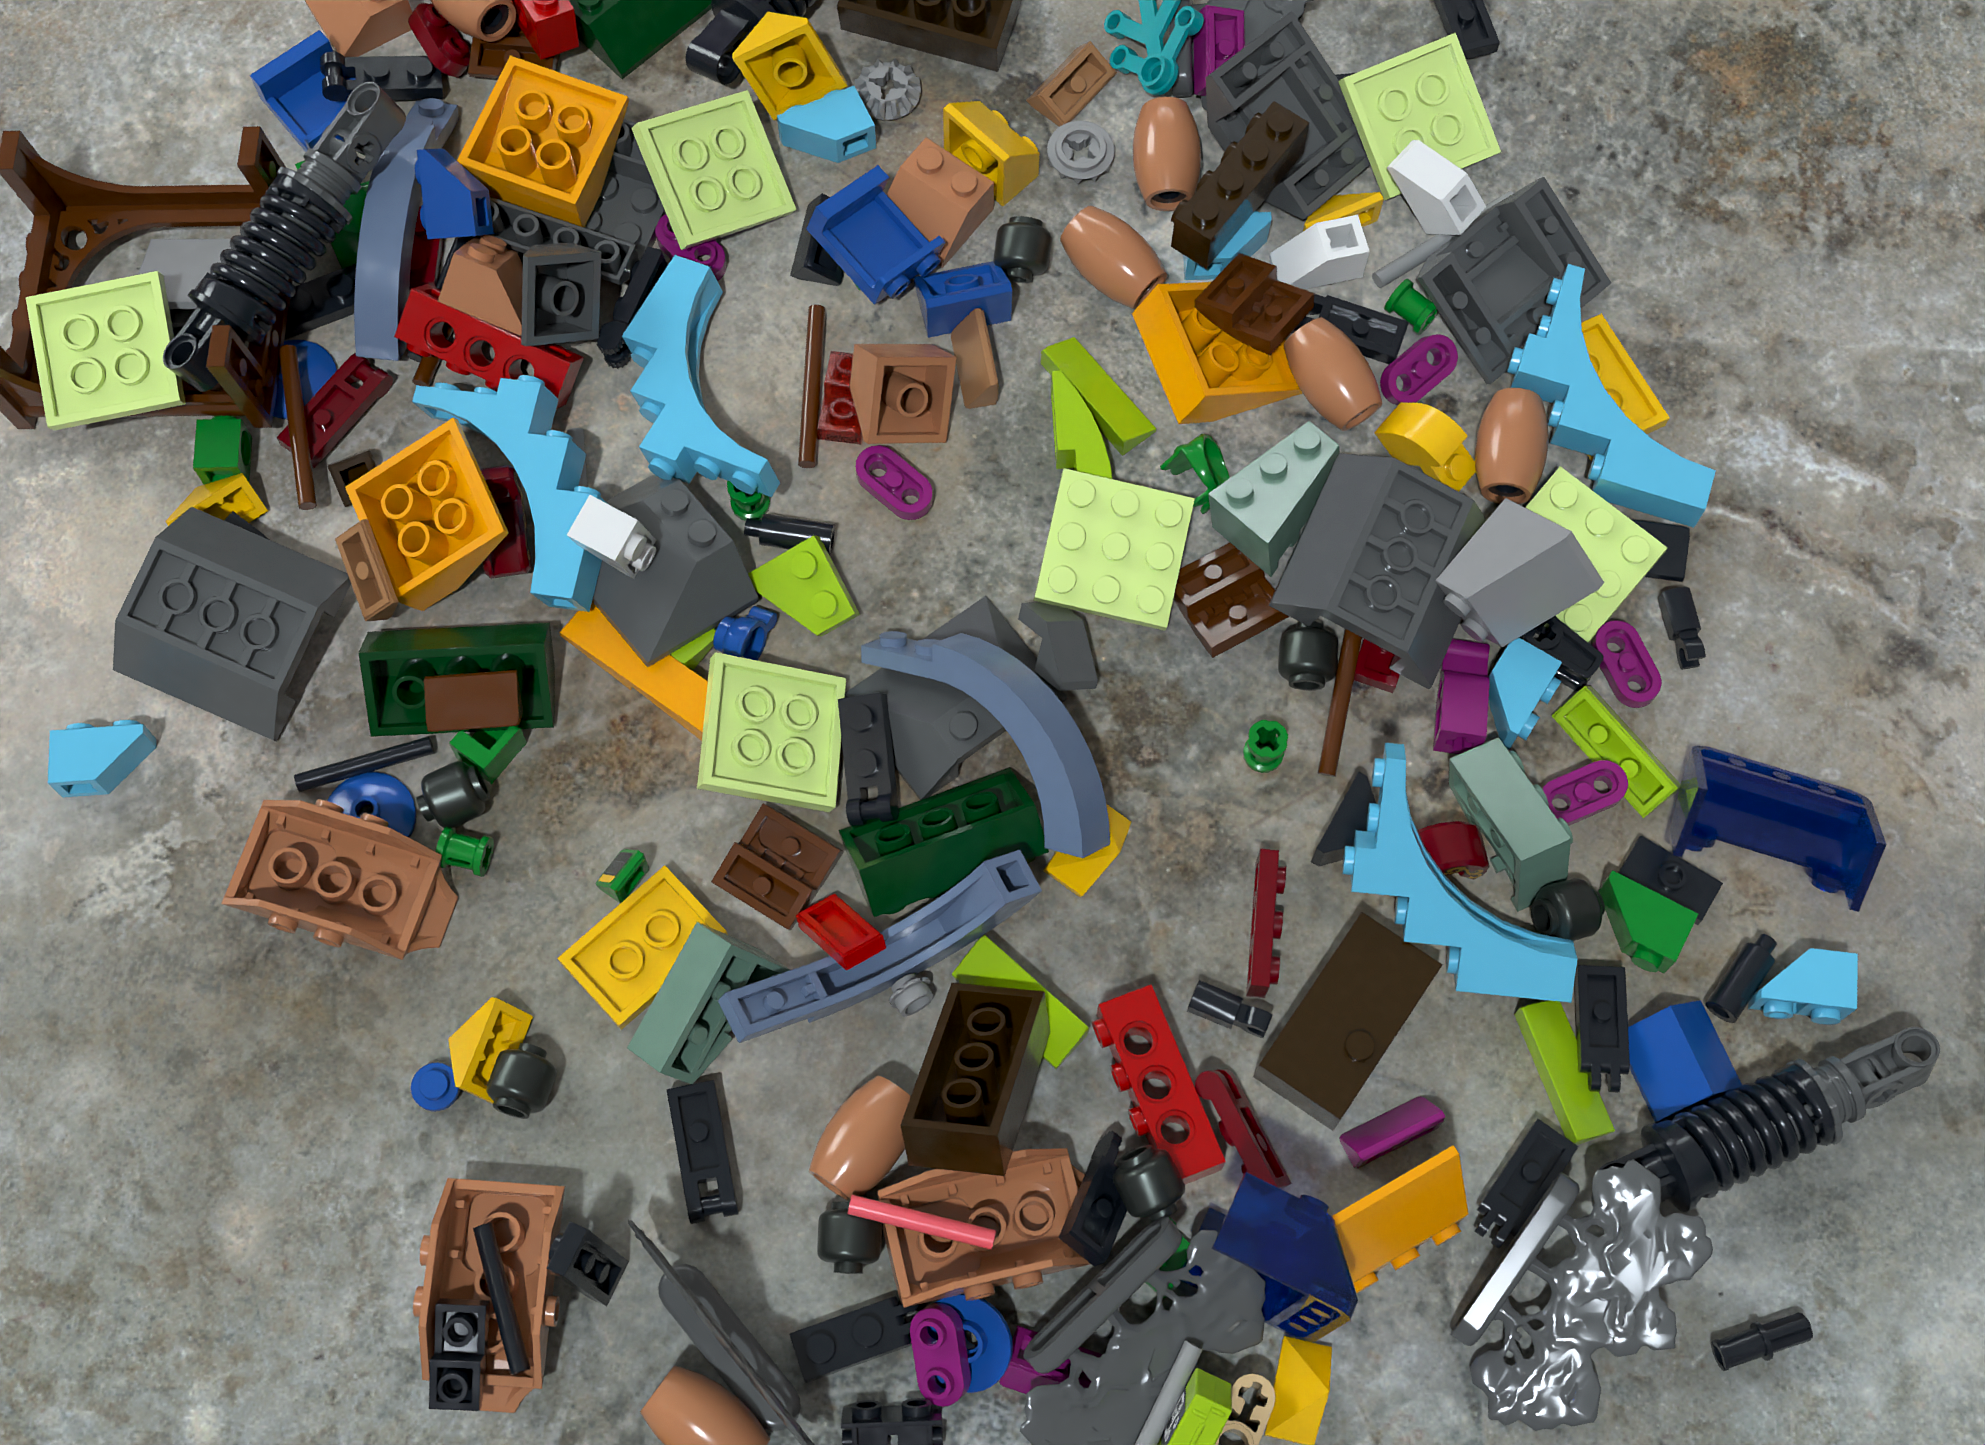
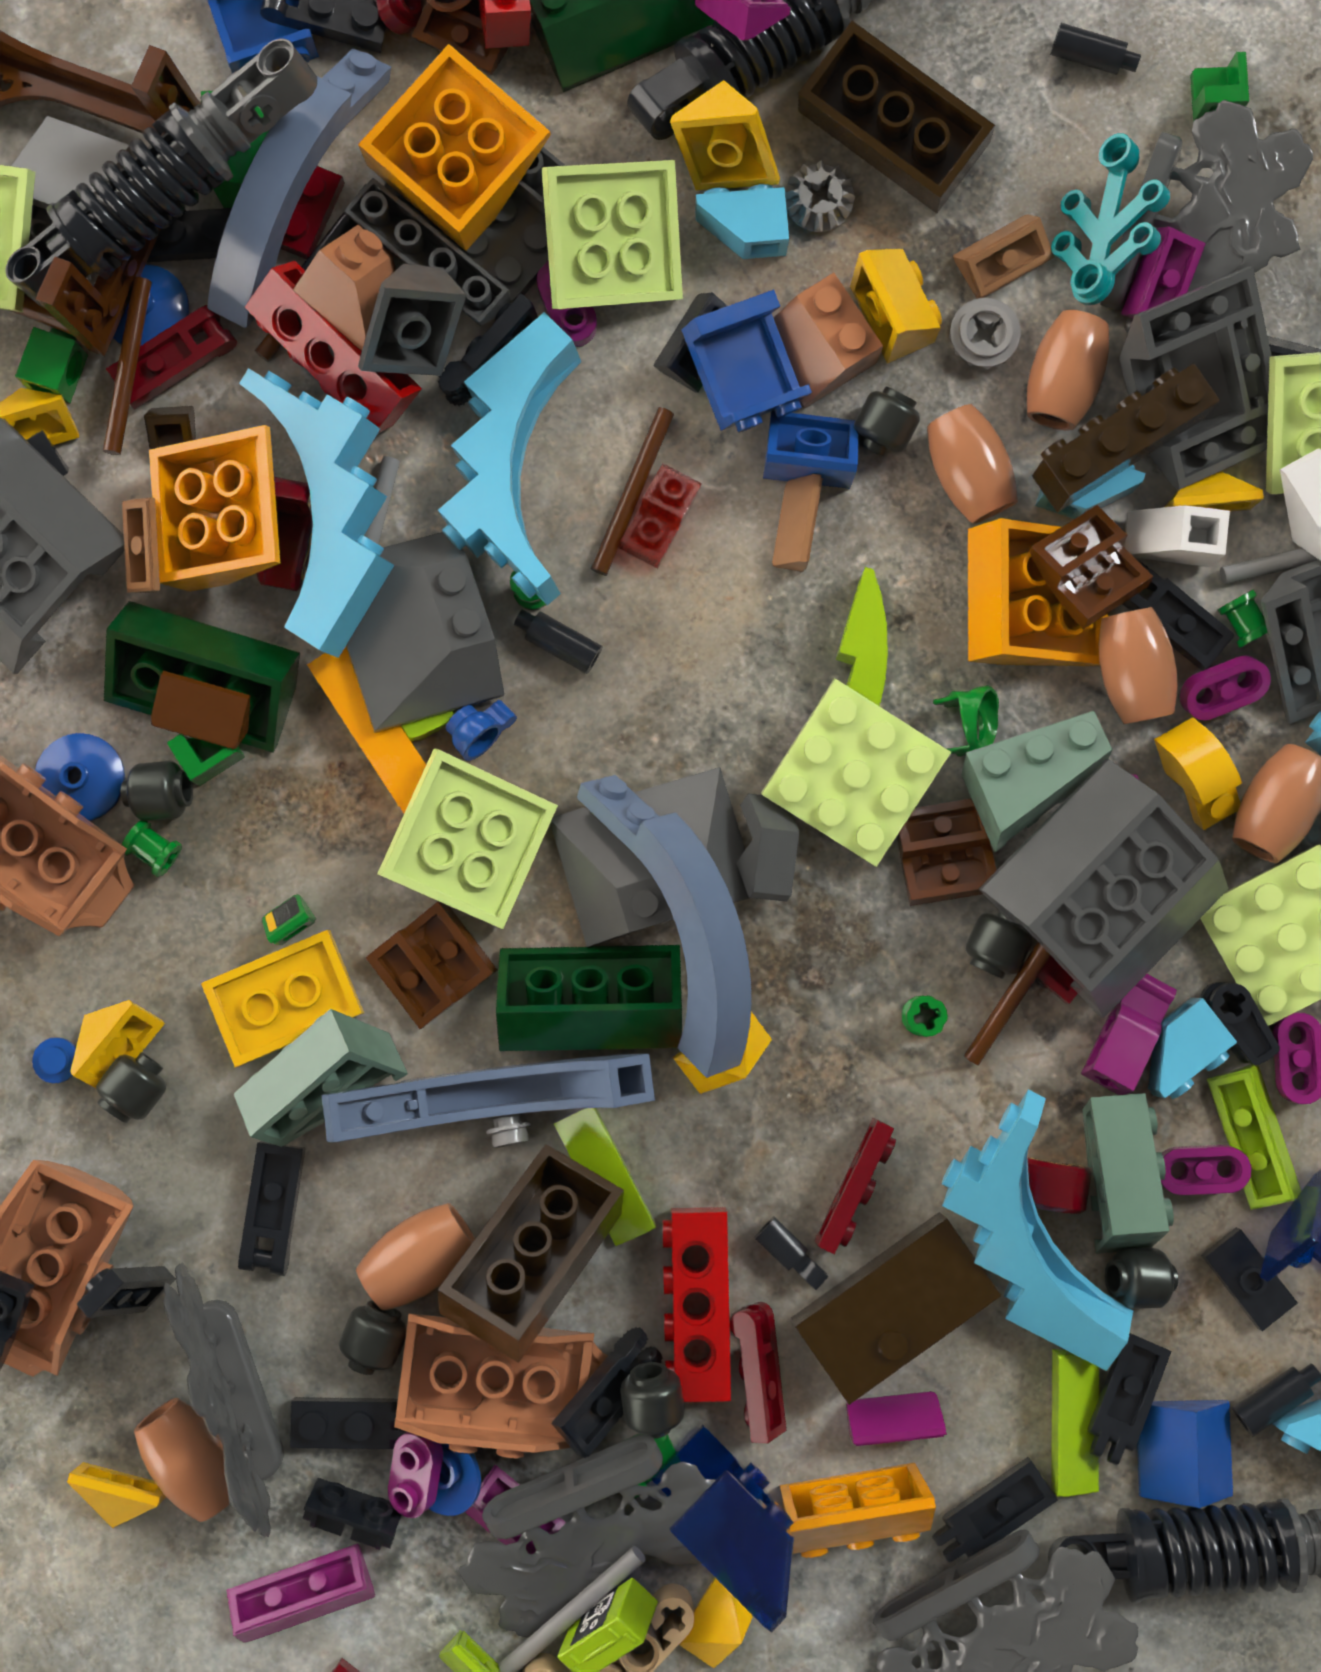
camera: 20 degrees right, 15 degrees up
(363, 764) = (88, 726): black bar -> none
(451, 196) = (342, 182): blue slope -> none
(501, 1299) = (45, 1287): black bar -> none
(613, 537) = (374, 607): white slope -> none
(806, 587) = (552, 701): lime wing -> none
(840, 931) = (463, 1055): red tile -> none
(868, 758) = (549, 893): black plate -> none
(896, 484) = (675, 623): magenta plate -> none
(902, 392) = (713, 535): nougat slope -> none
(921, 1222) = (436, 1358): coral bar -> none
(1111, 408) = (903, 598): lime slope -> none
(1348, 818) = (972, 1120): black slope -> none
(1516, 575) = (1226, 951): light grey slope -> none
(1645, 922) = (1209, 1318): green slope -> none

